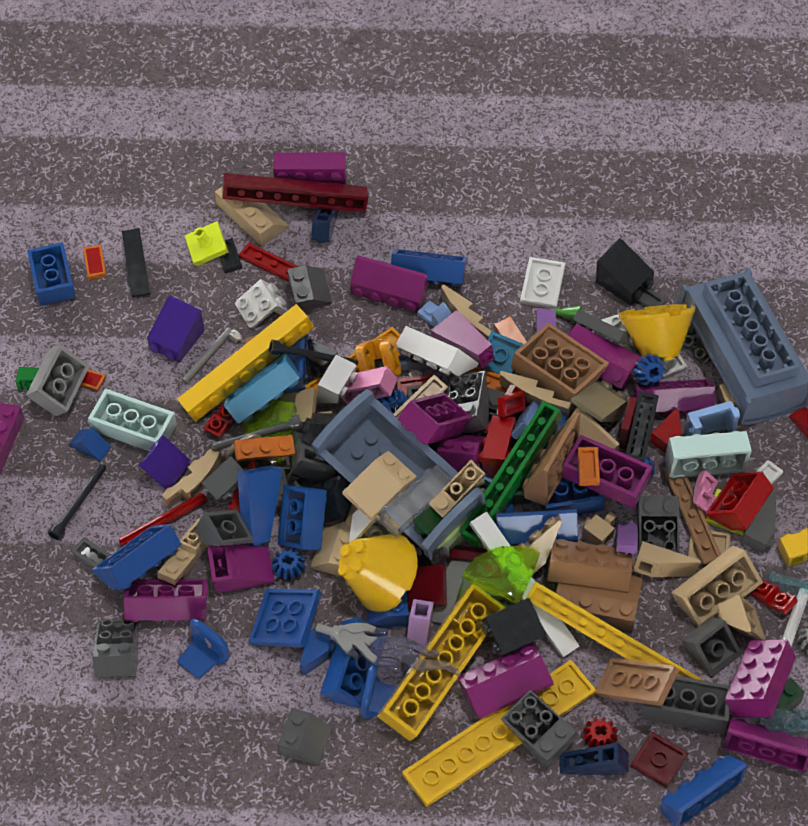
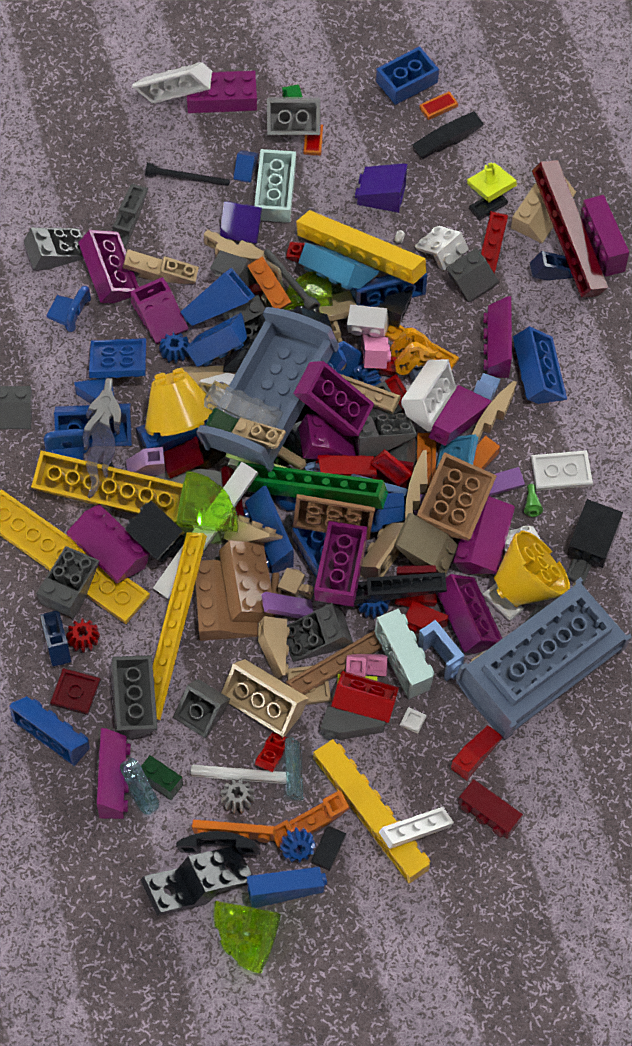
camera: 70 degrees right, 5 degrees up
(138, 556) = (136, 229): blue slope -> none
(166, 517) = (184, 239): red axle -> none
(206, 356) = (370, 222): light grey bar -> none
(223, 528) = (183, 283): dark grey slope -> none
(277, 347) = (373, 259): black piece -> none
(379, 484) = (247, 373): tan slope -> none
(588, 466) = (332, 541): orange tile -> none
(600, 327) = (517, 523): dark grey piece -> none
(636, 681) = (134, 646): medium nougat plate -> none
(649, 370) = (479, 579): blue gear -> none
(741, 617) = (234, 727): tan slope -> none
(760, 678) = (169, 748): magenta brick -> none

